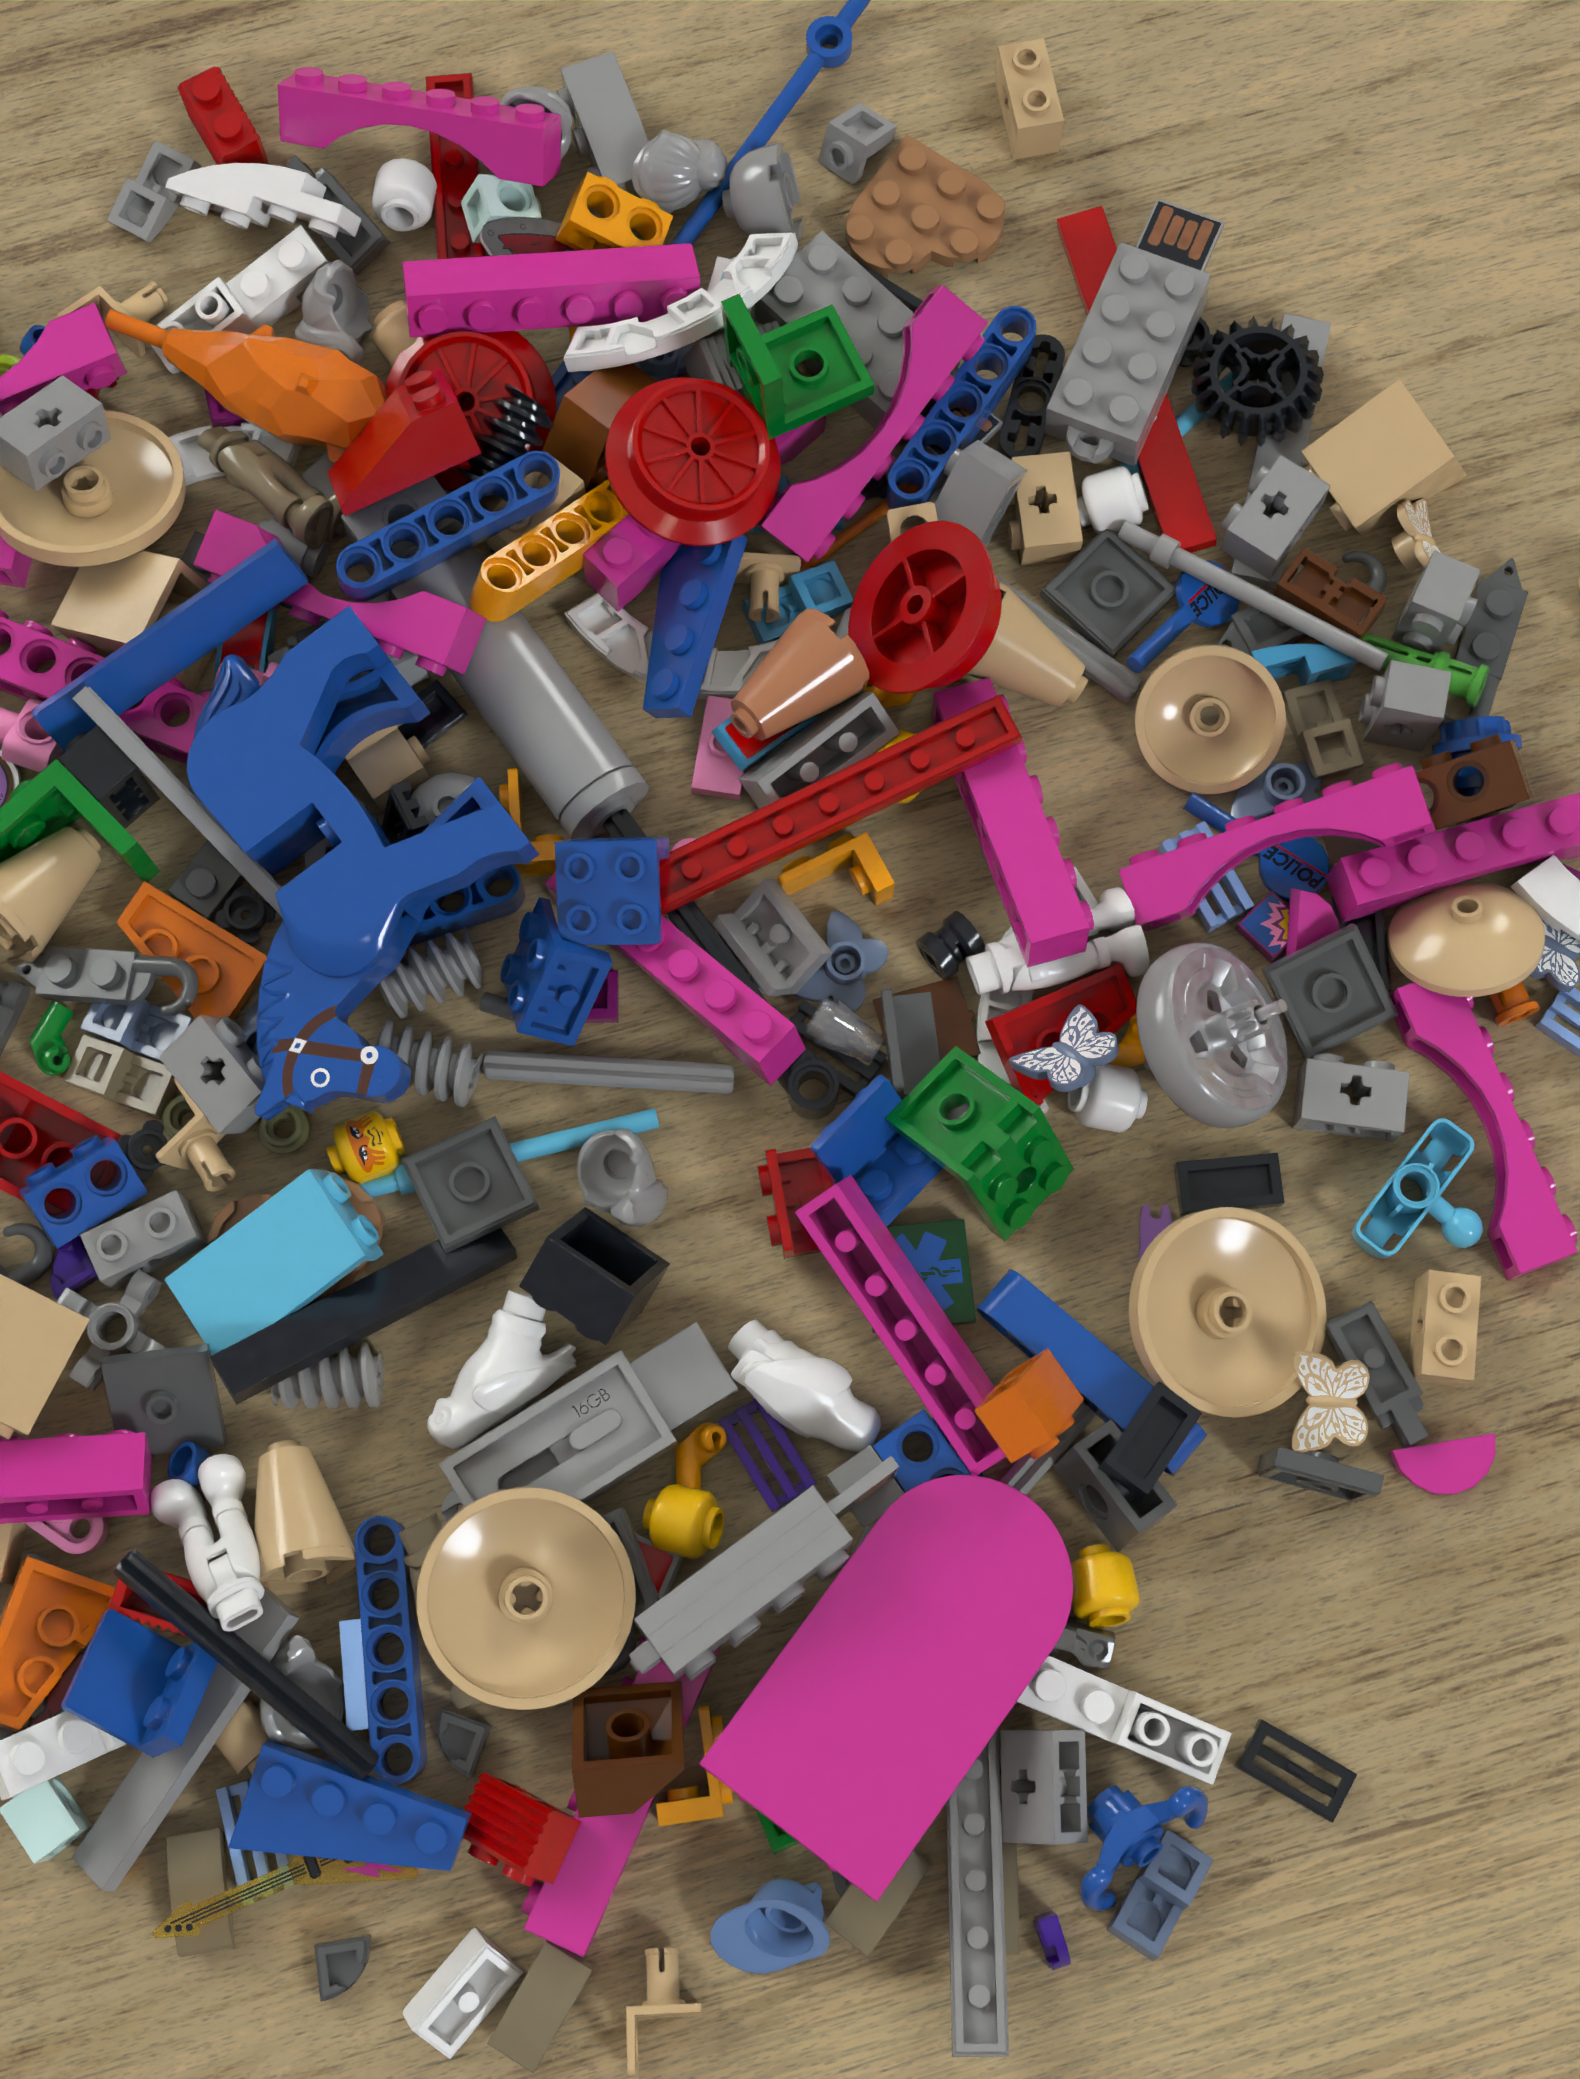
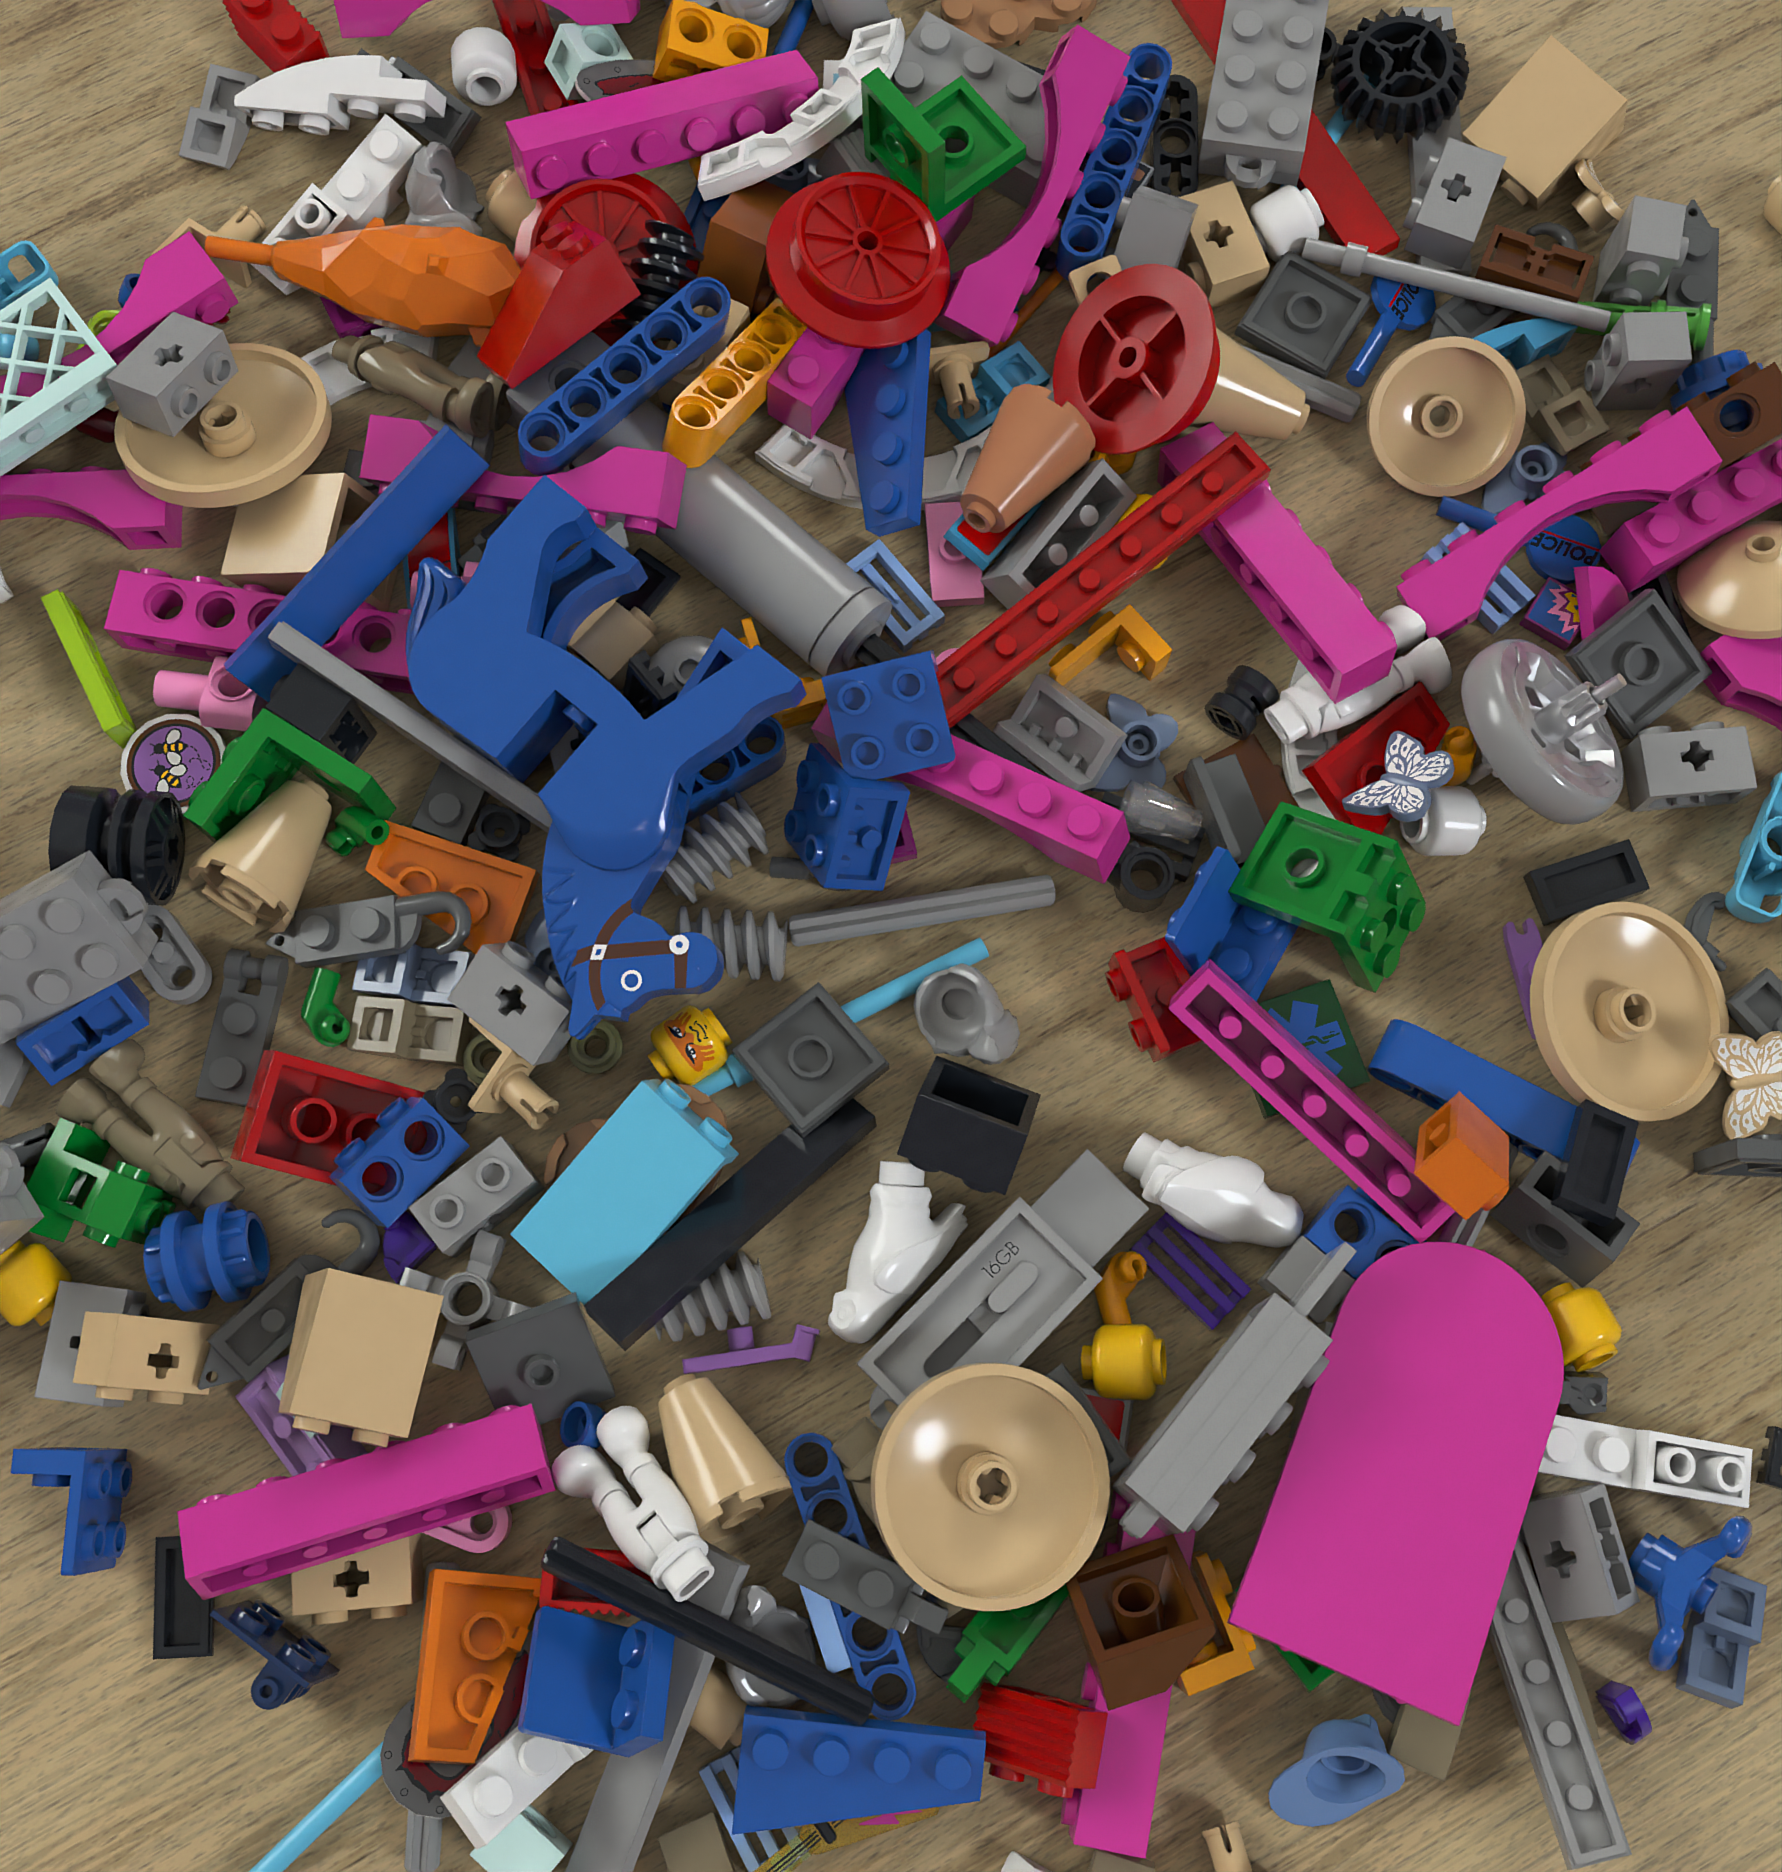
camera: 15 degrees left, 0 degrees up
(117, 882) = (353, 828): none -> green arm
(347, 1434) = (743, 1351): none -> medium lavender piece
(393, 1654) = (861, 1580): none -> dark grey hinge
(507, 1737) = (998, 1641): none -> green hinge
(673, 810) = (918, 628): none -> light blue tile
(1322, 1248) = (1699, 922): none -> dark grey piece

